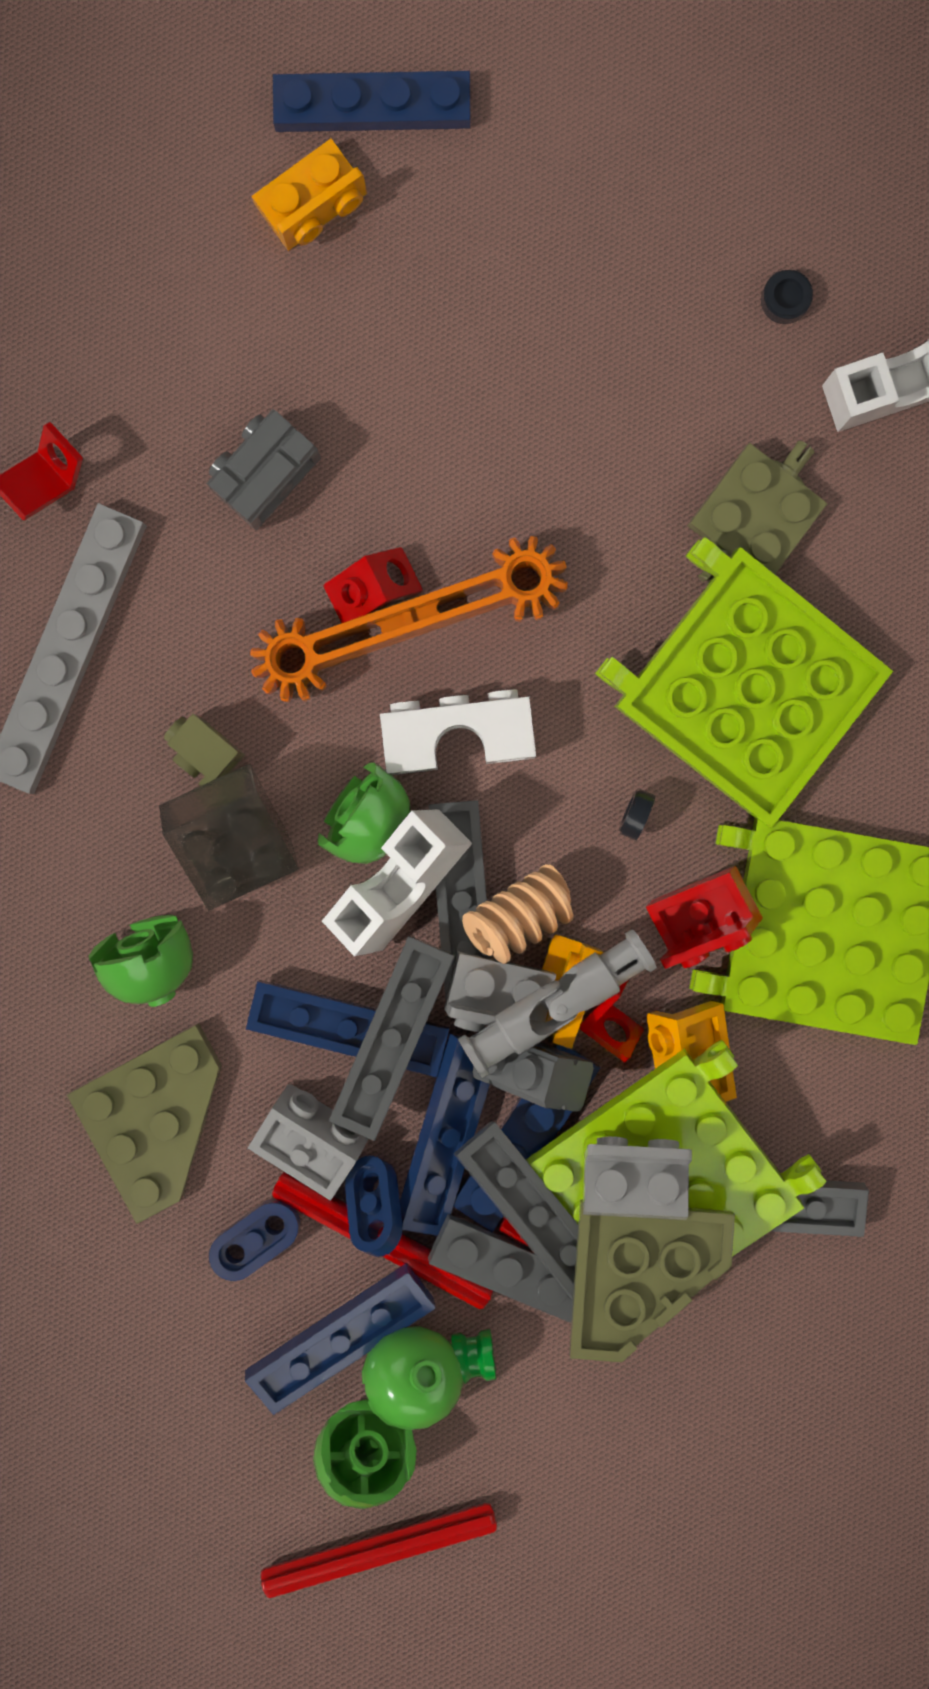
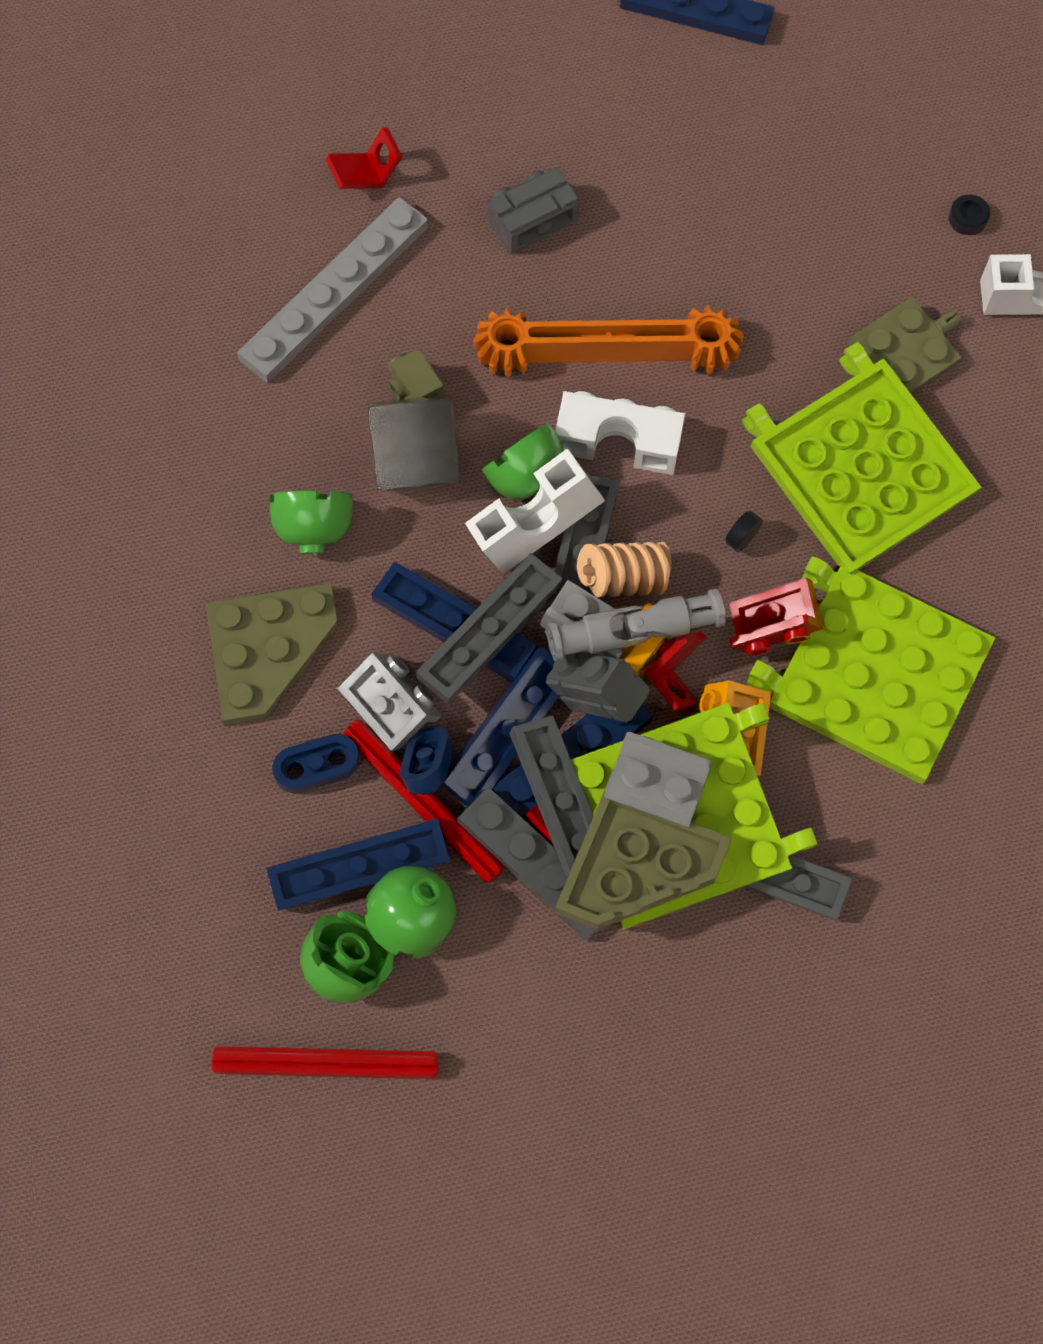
camera: 15 degrees right, 20 degrees down
(311, 195) = (631, 50): light orange bracket -> none
(367, 585) = (586, 304): red bracket -> none
(475, 1355) = (470, 916): green wheel -> none

